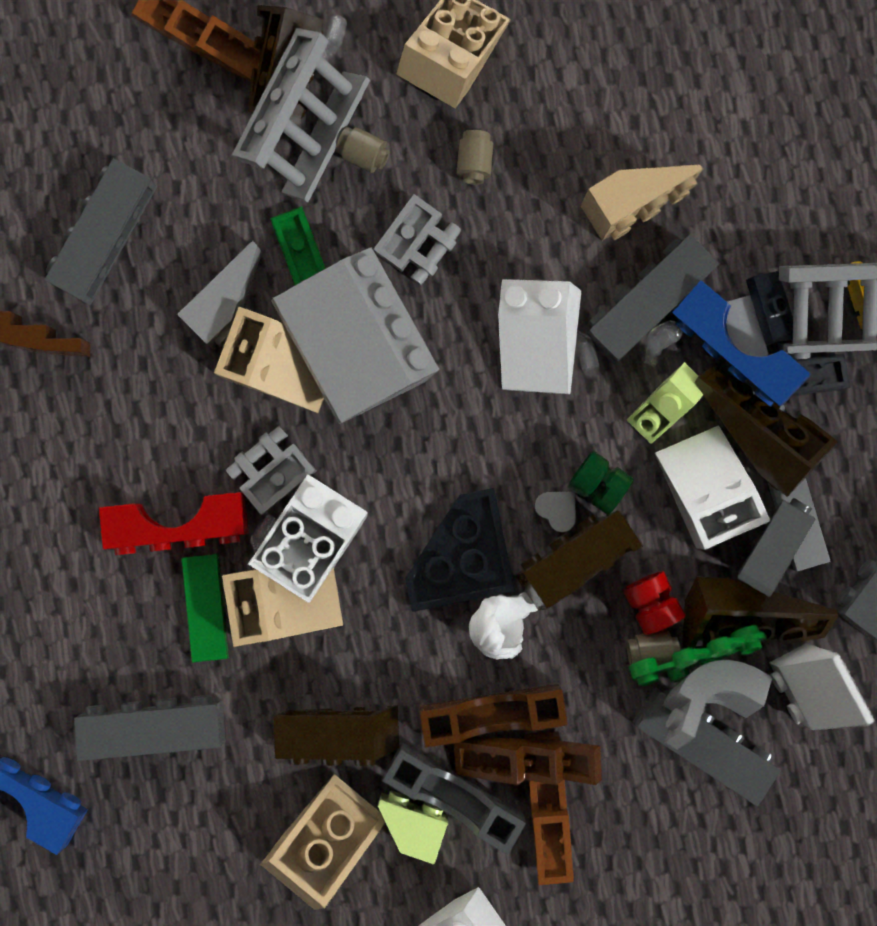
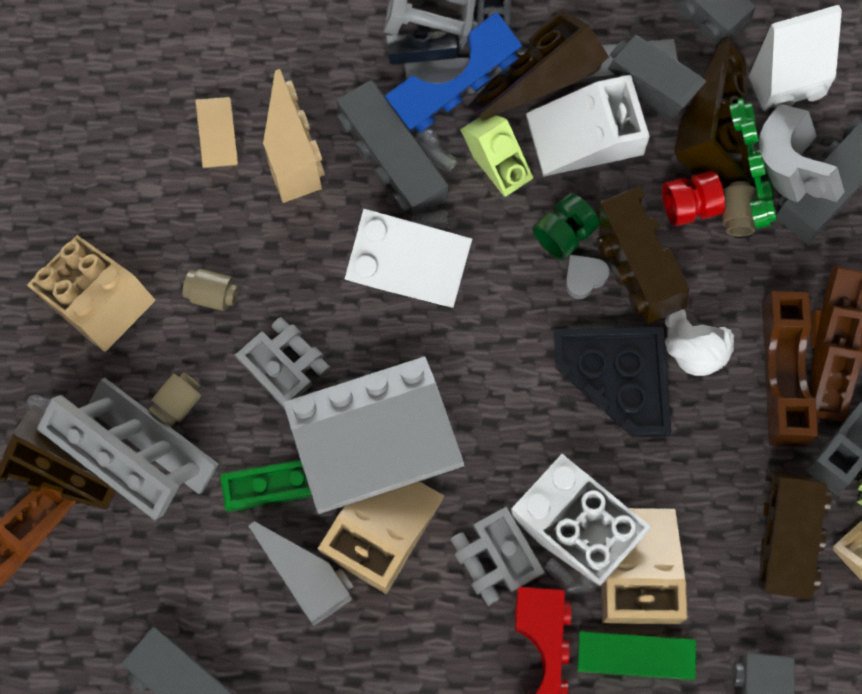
camera: 80 degrees left, 15 degrees down
(638, 125) = (216, 132): none -> tan slope

